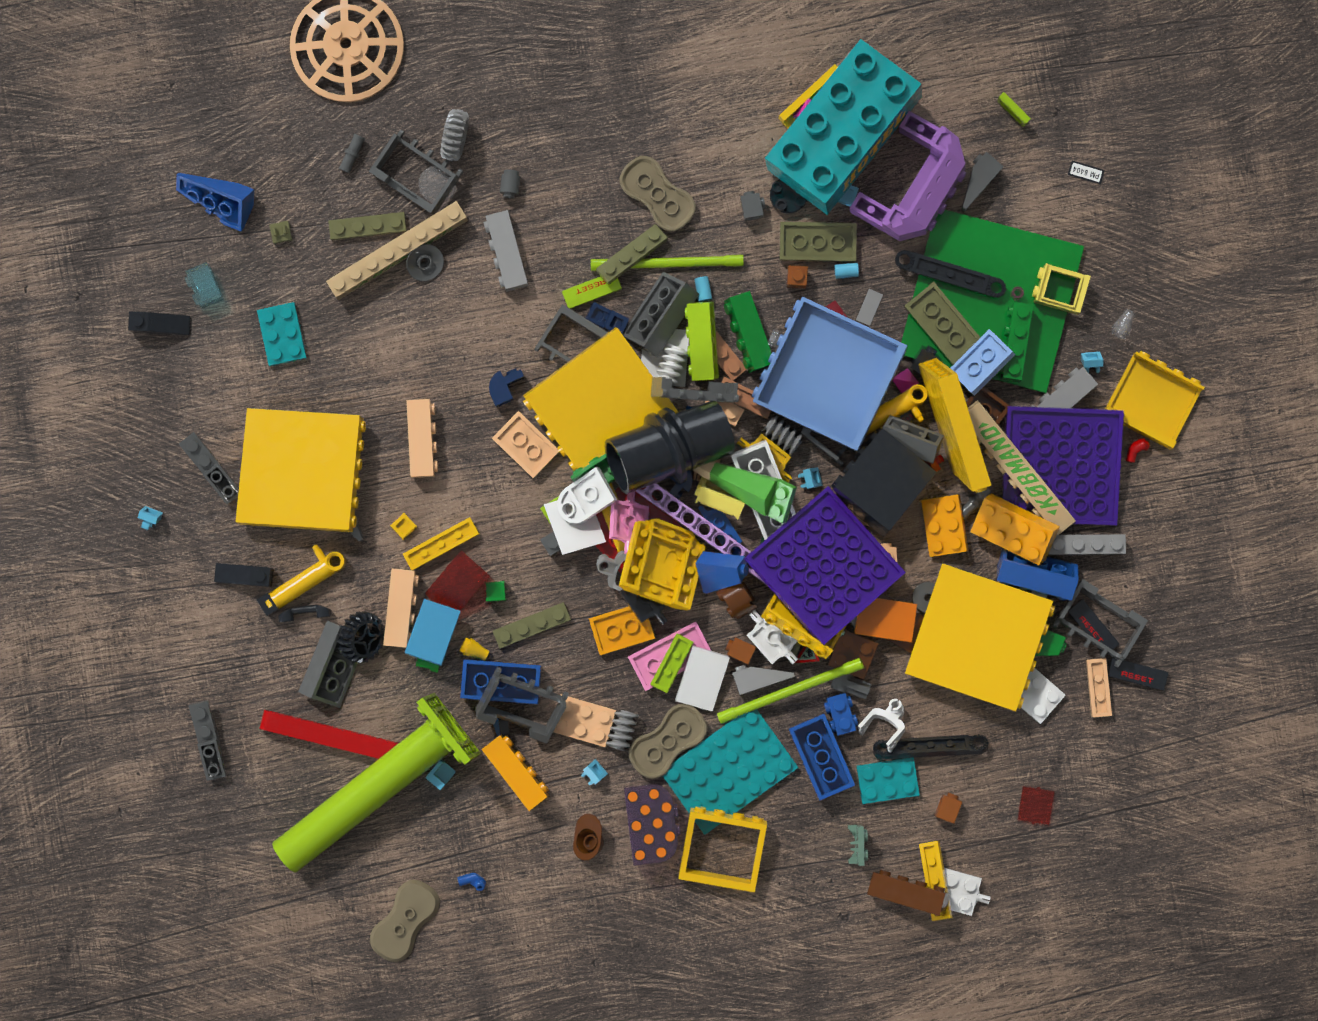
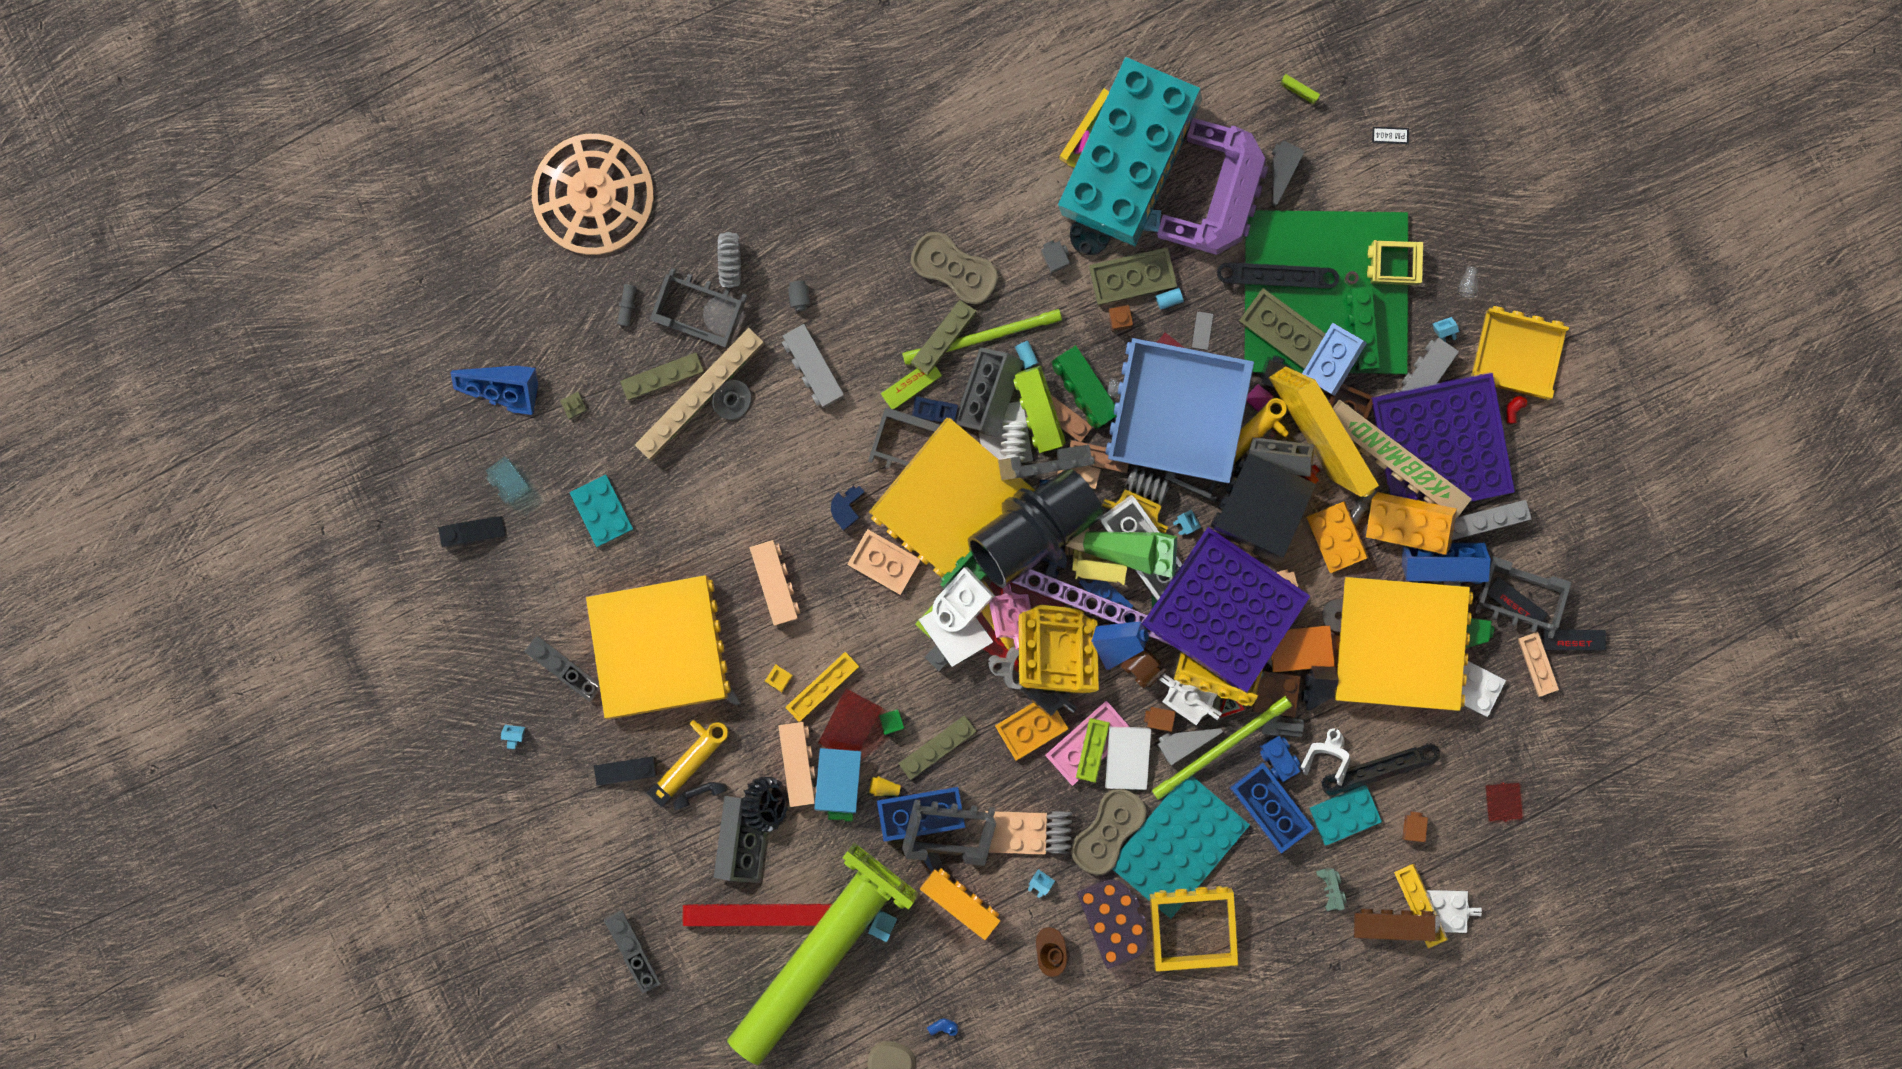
camera: 20 degrees left, 0 degrees up
(894, 657) = (1320, 686): none -> black slope

